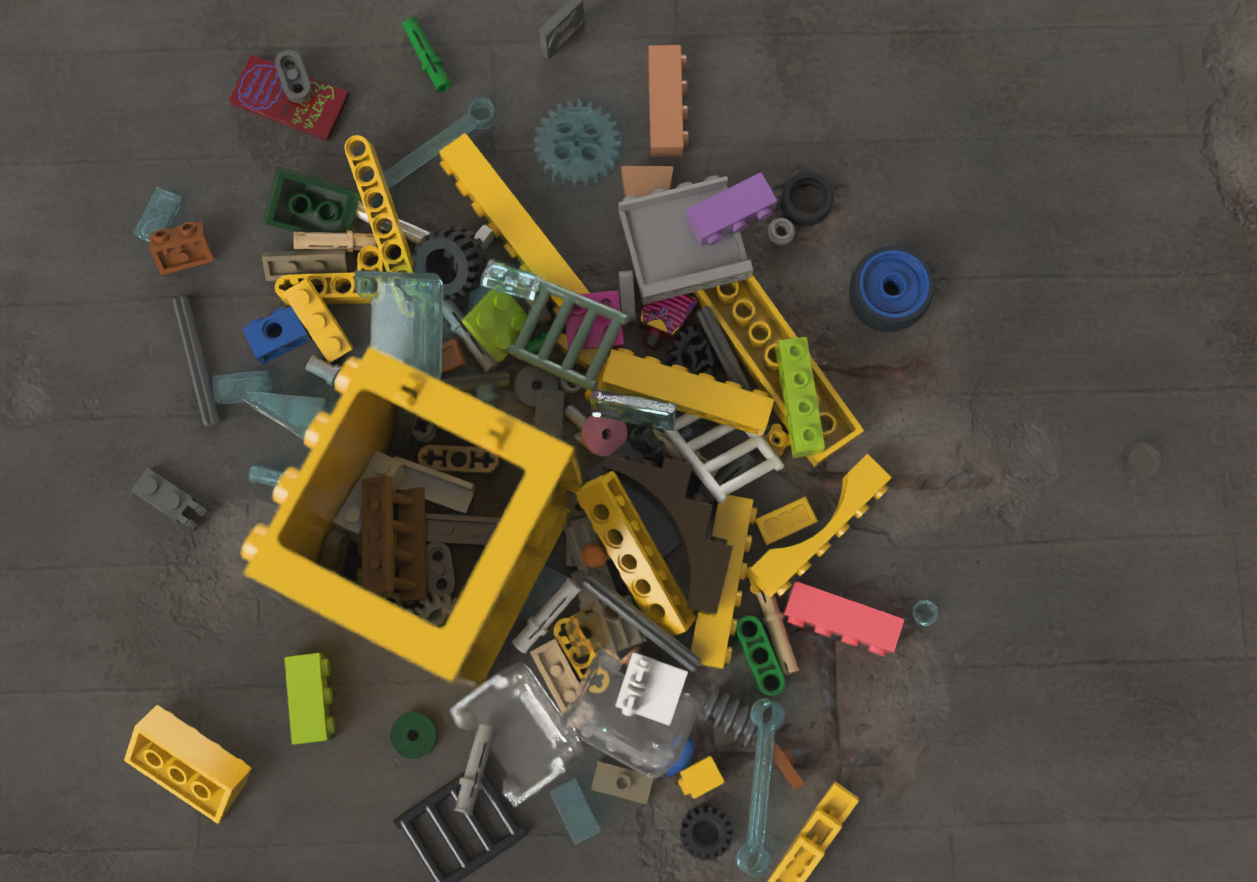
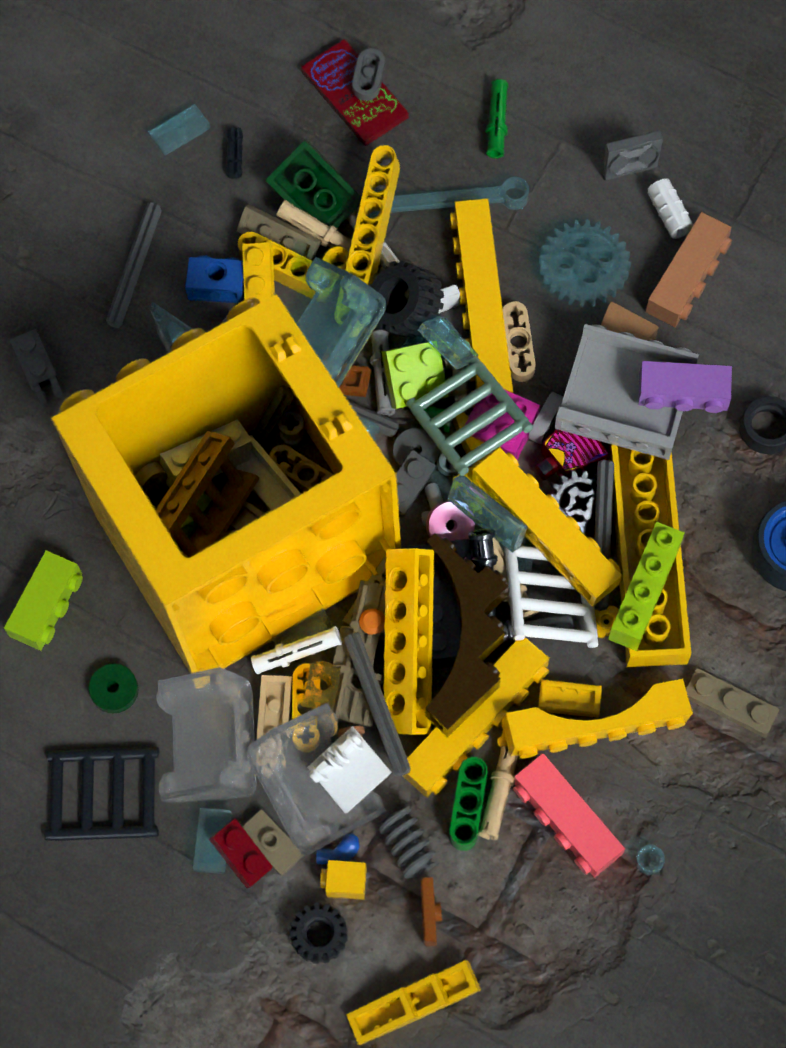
camera: 35 degrees right, 10 degrees down
(180, 247) = (181, 164): dark orange bracket -> none
(219, 211) = (234, 153): none -> black axle
(228, 386) = (146, 296): clear light blue plate -> none
(471, 782) = (138, 754): light grey pin -> none
(557, 223) = (514, 352): none -> tan beam
(605, 808) = (241, 853): none -> dark red plate
(618, 55) = (670, 208): none -> white axle
(760, 787) = (393, 919): clear light blue piece -> none
(781, 223) = (726, 433): light grey plate -> none
(912, 448) = (731, 703): none -> dark tan plate

